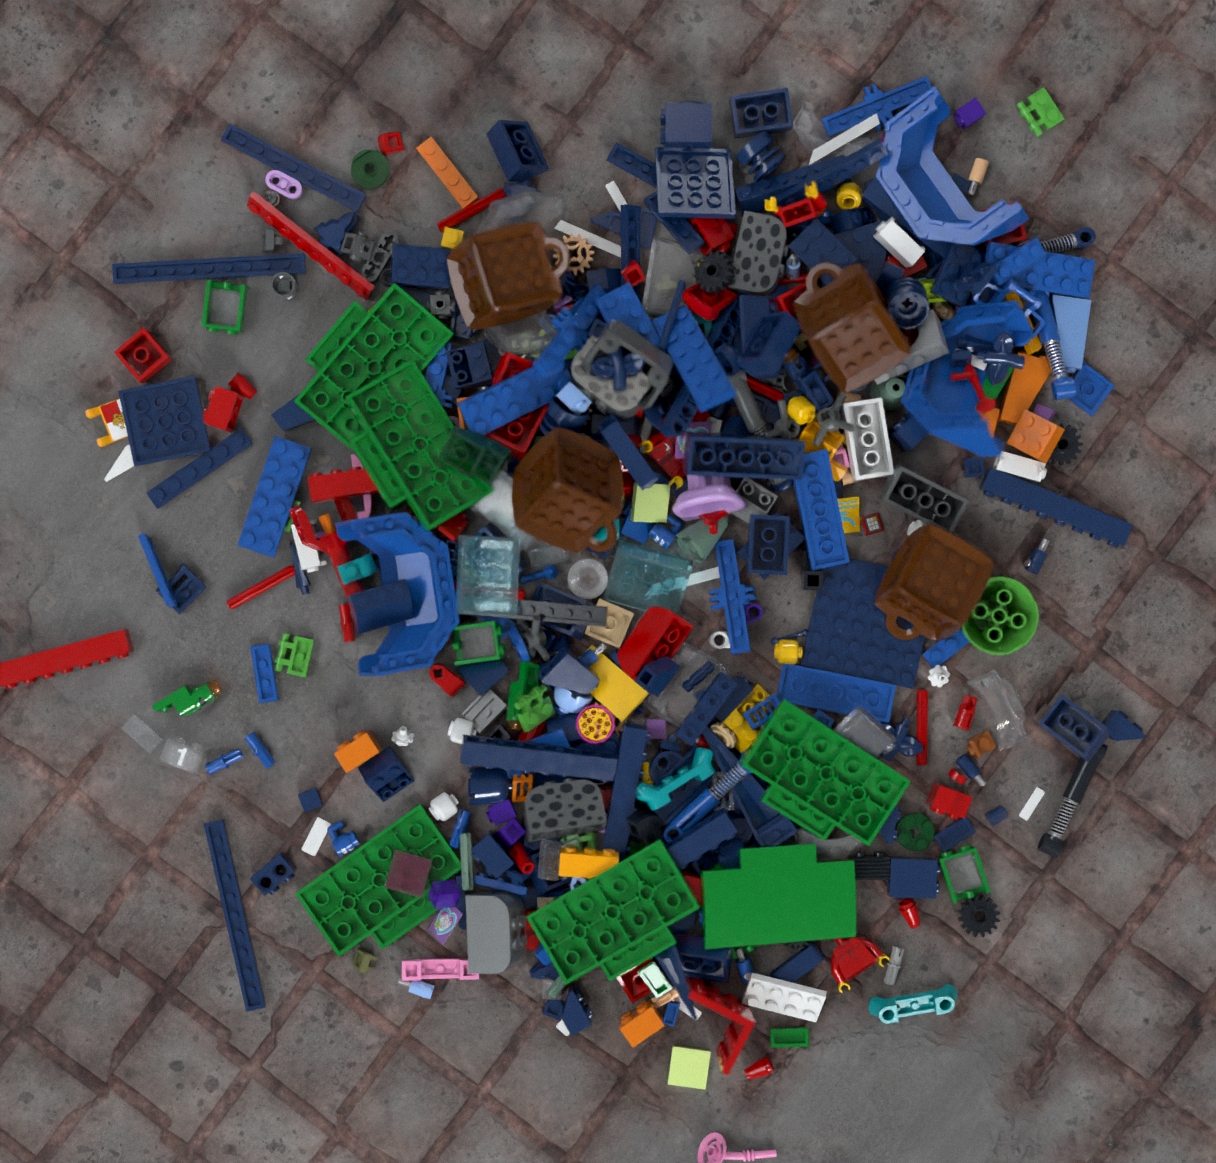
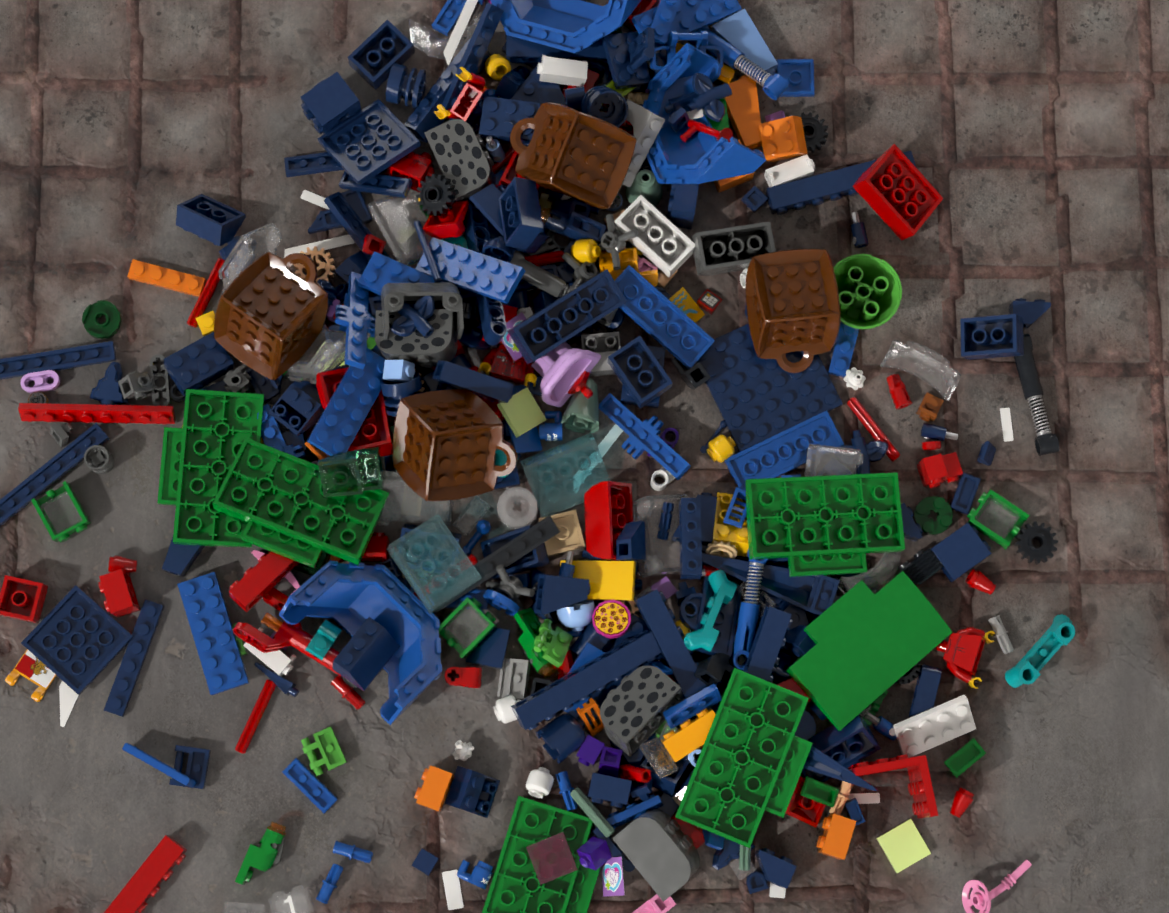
camera: 40 degrees left, 10 degrees down
(390, 143) = (103, 288): red slope -> none
(604, 788) = (662, 667): none -> blue piece
(605, 840) = (692, 705): none -> blue plate
(1094, 552) = (898, 192): none -> red slope

